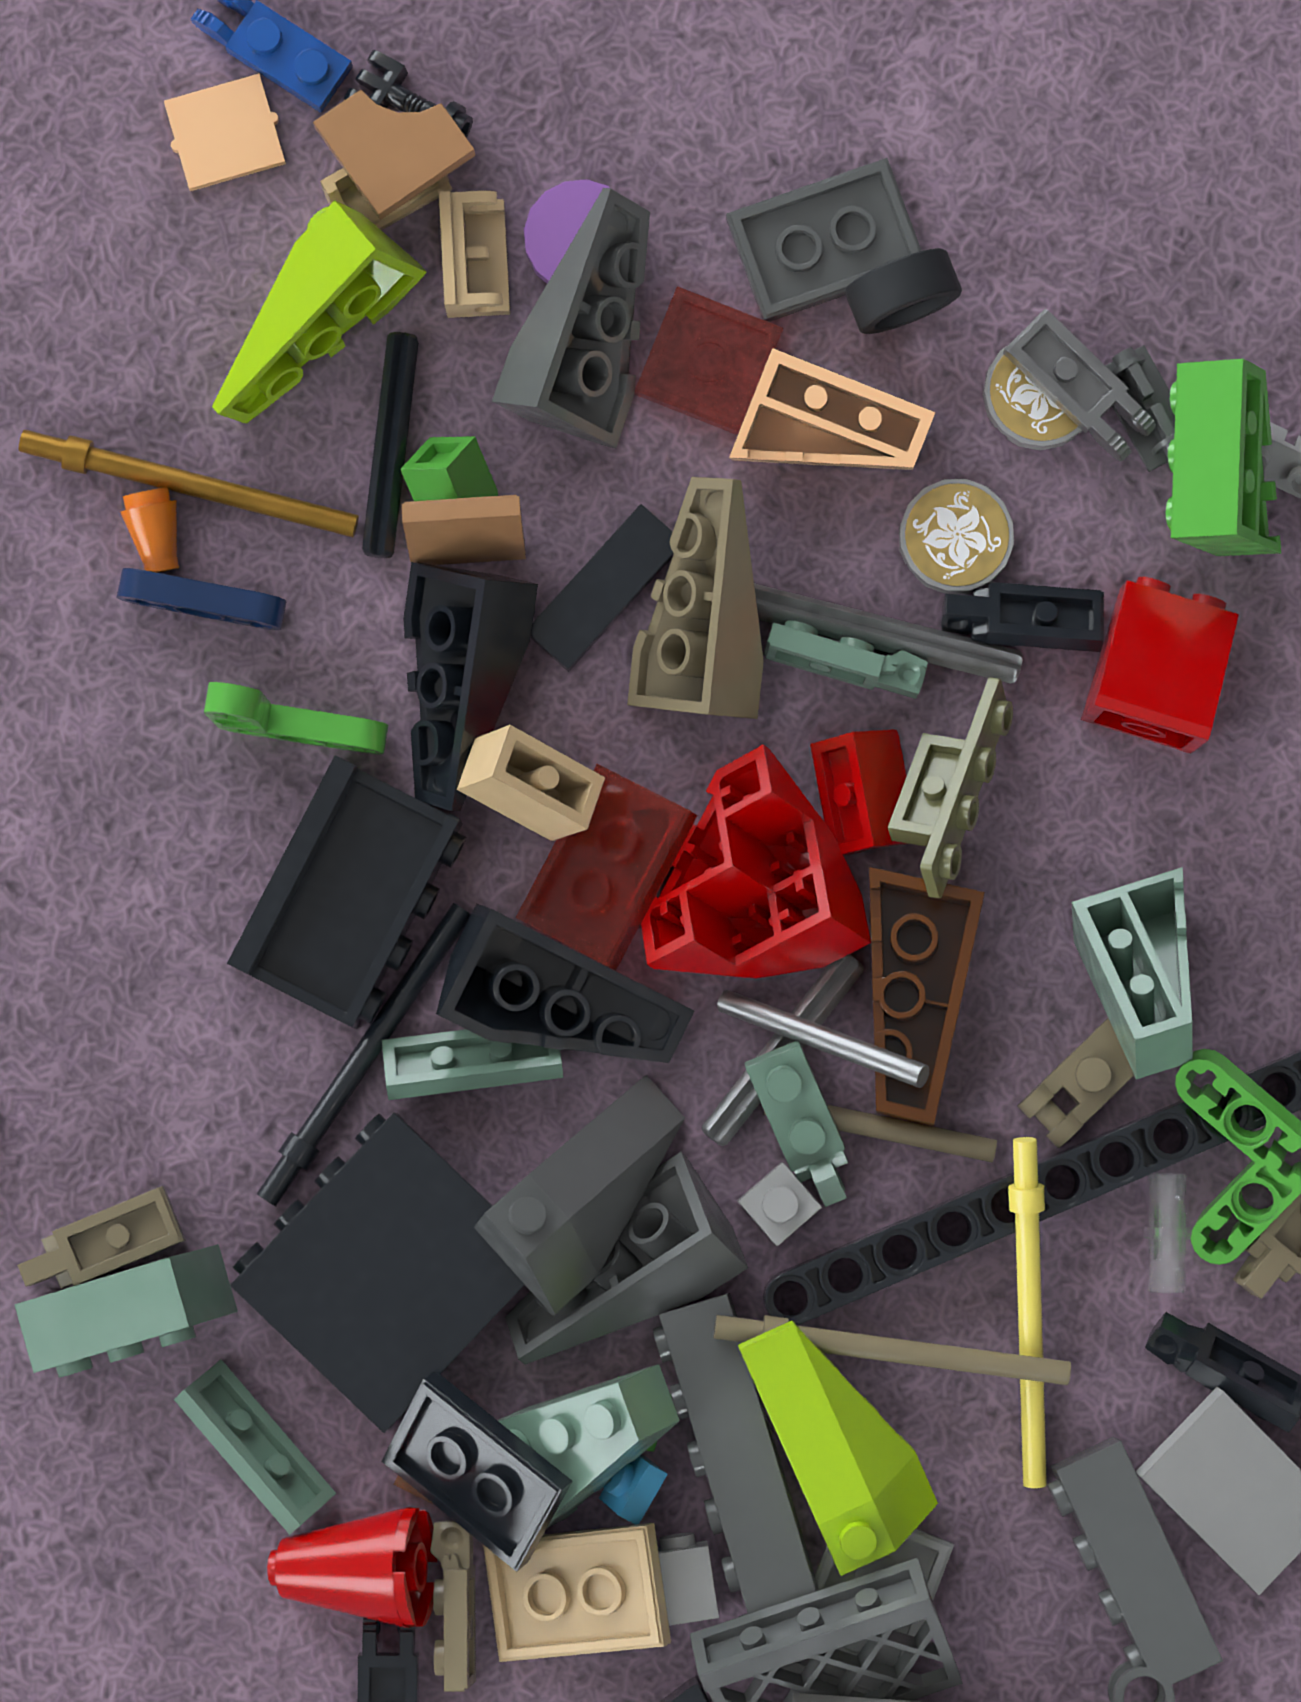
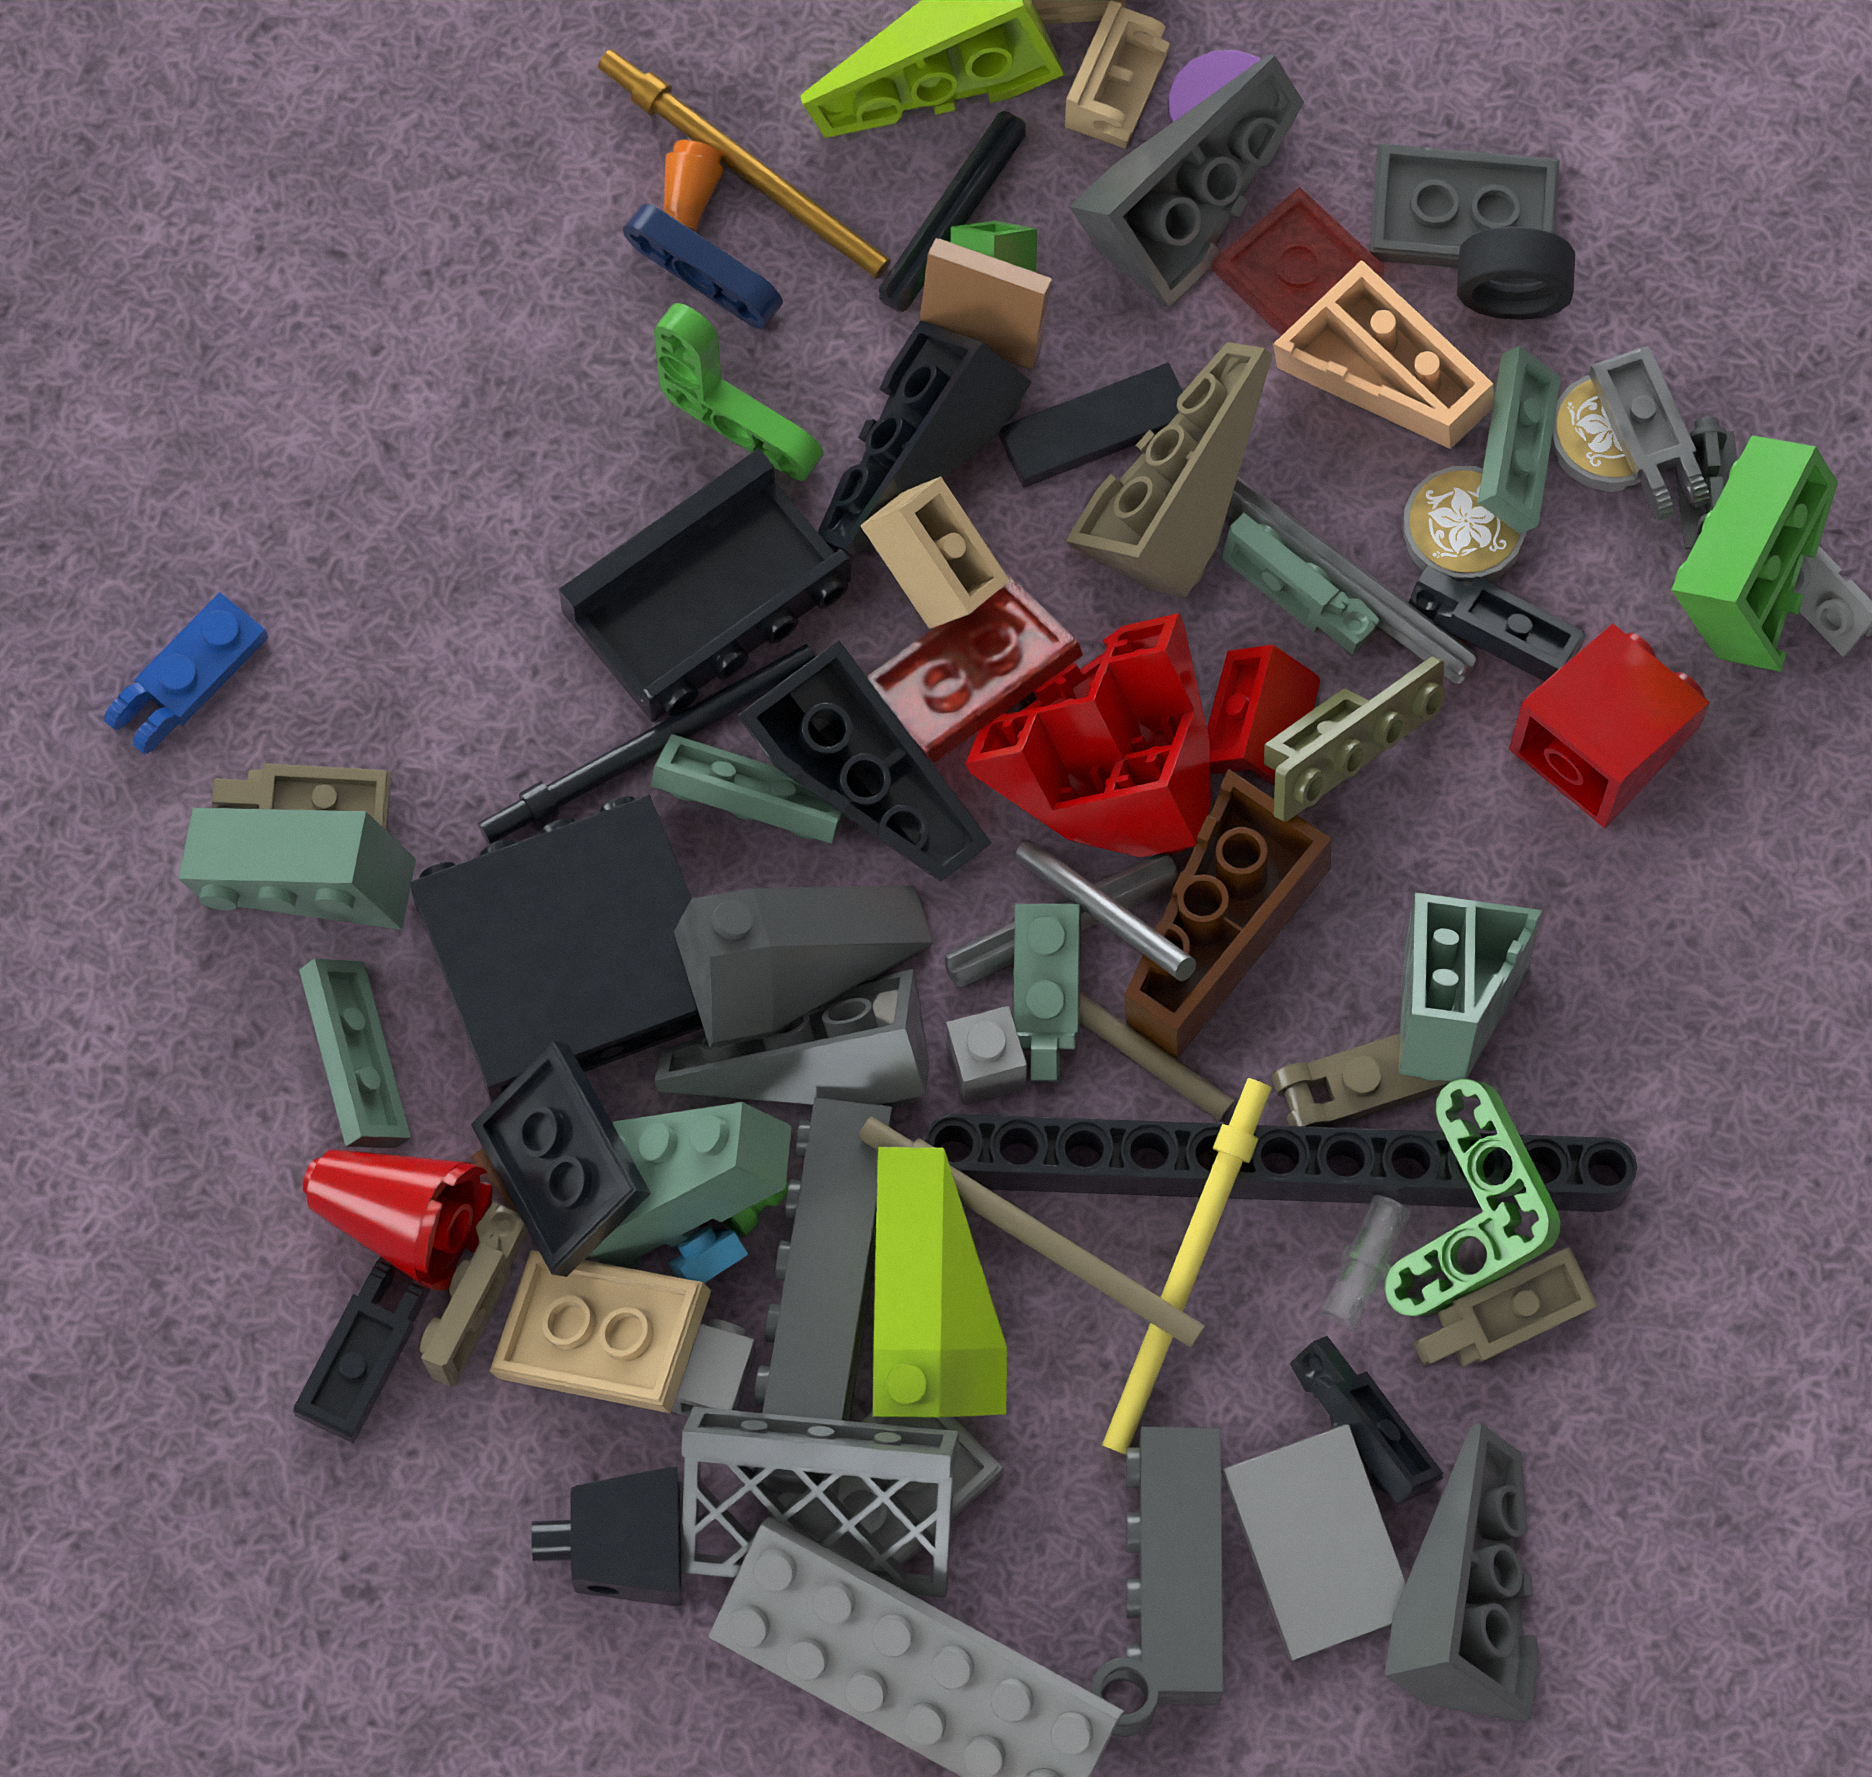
camera: 25 degrees right, 15 degrees down
(973, 443) = (1519, 440): none -> sand green plate

